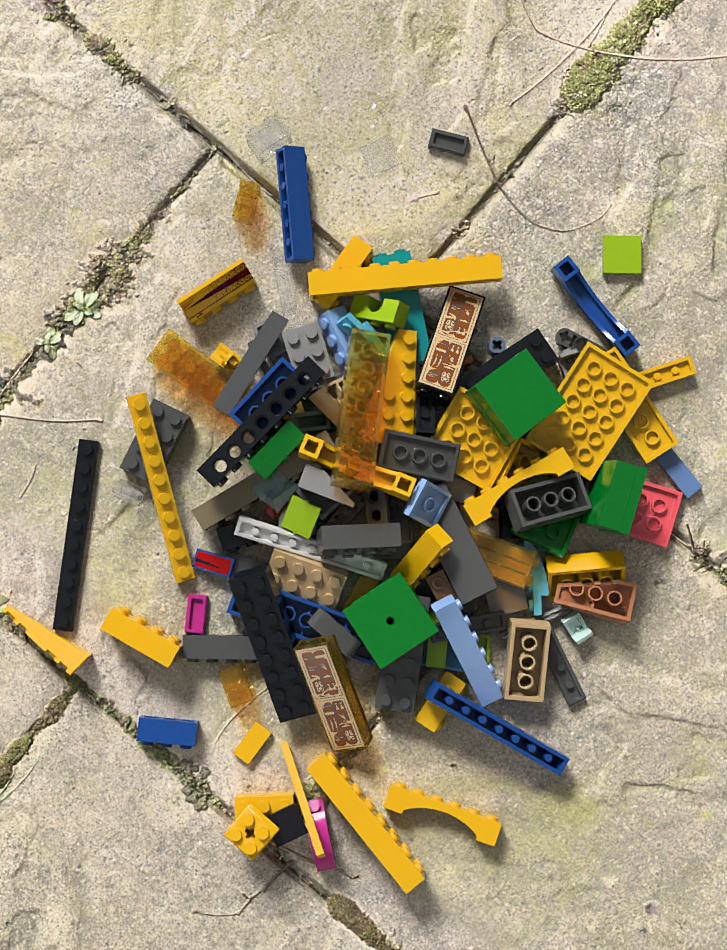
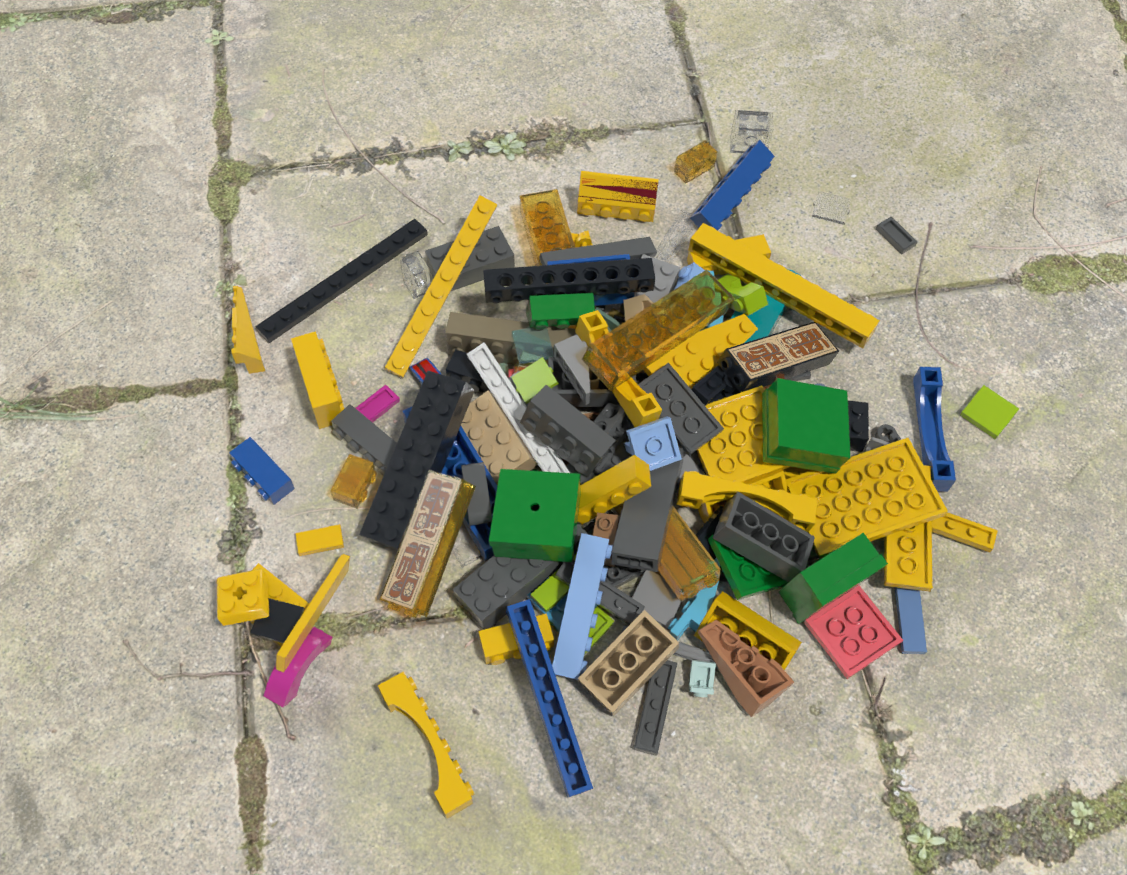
camera: 40 degrees right, 25 degrees down
(366, 821) = (350, 686): yellow brick -> none

